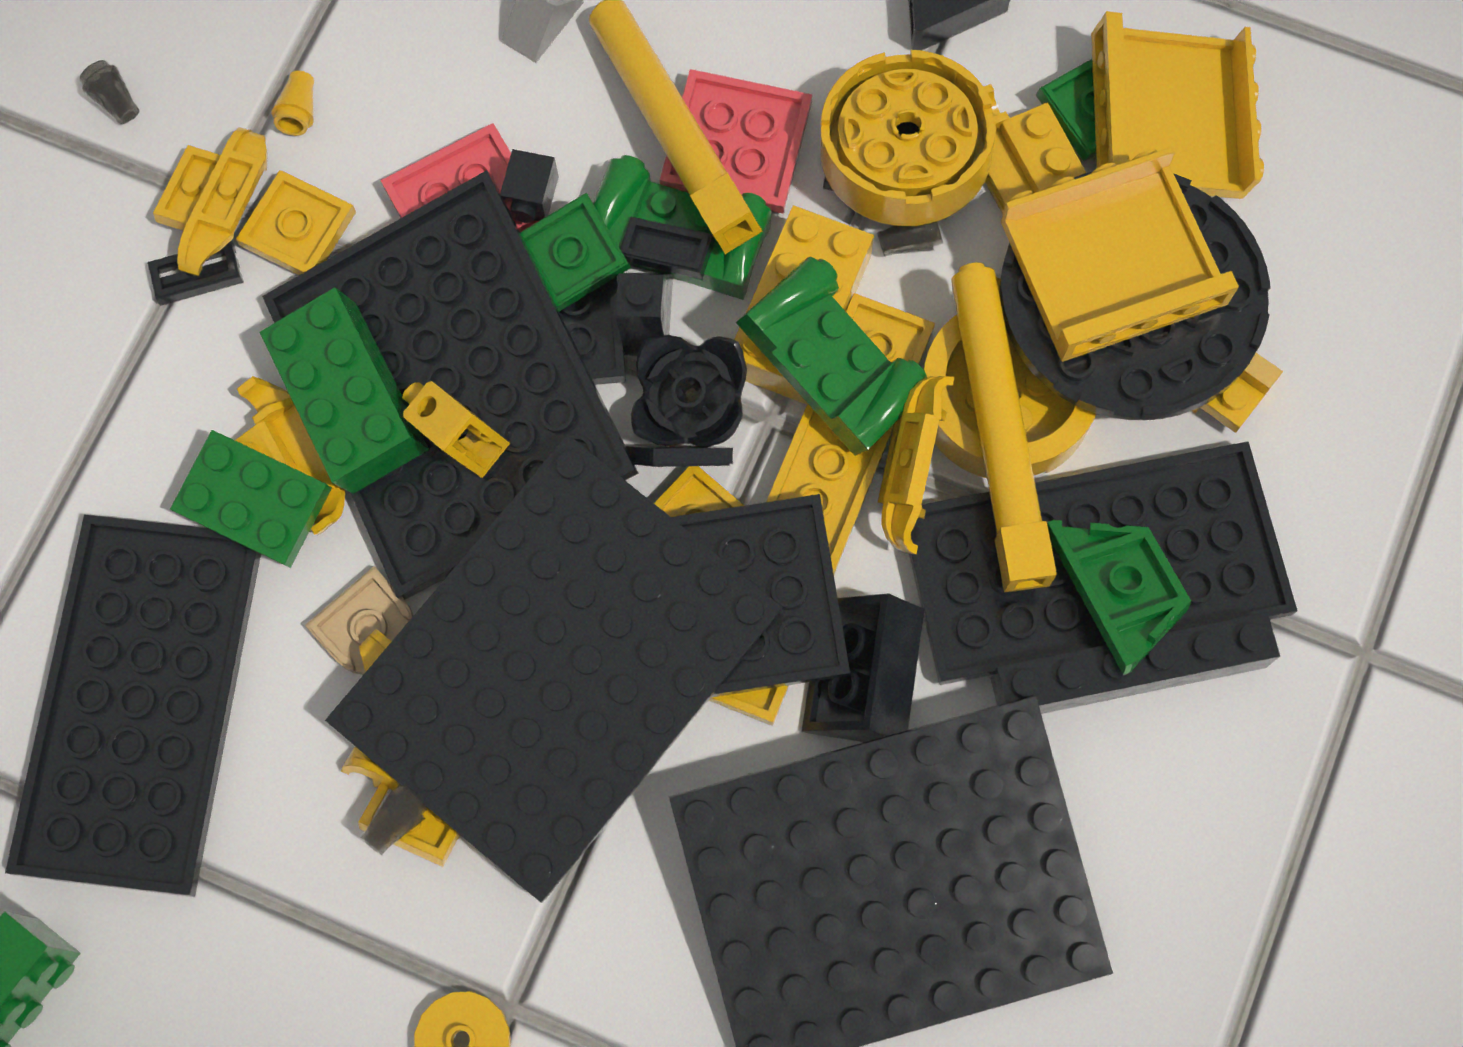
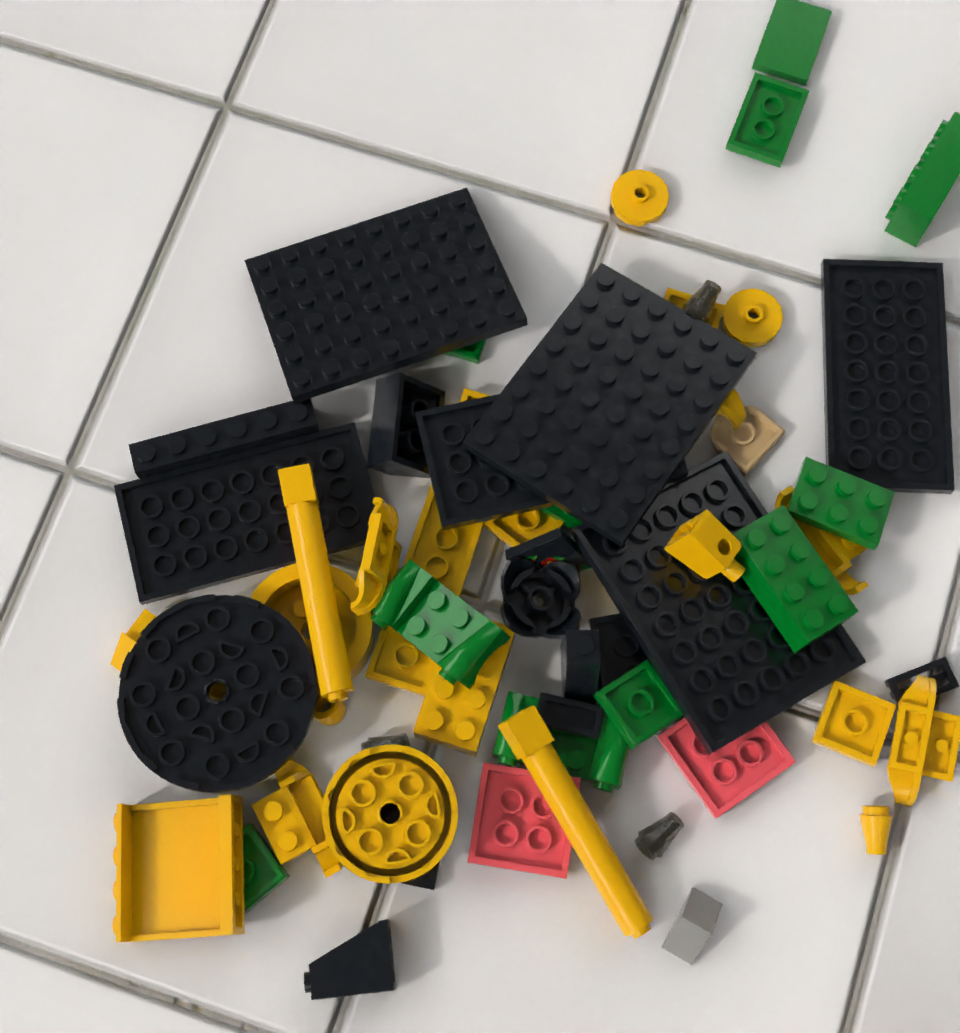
camera: 175 degrees right, 0 degrees up
(338, 826) = (748, 330): none -> yellow plate
(529, 185) = (679, 753): black brick -> none
(568, 112) = (658, 836): none -> clear smoke cone
(1114, 254) = (230, 708): yellow panel -> none
(1123, 585) = (231, 483): green wing -> none

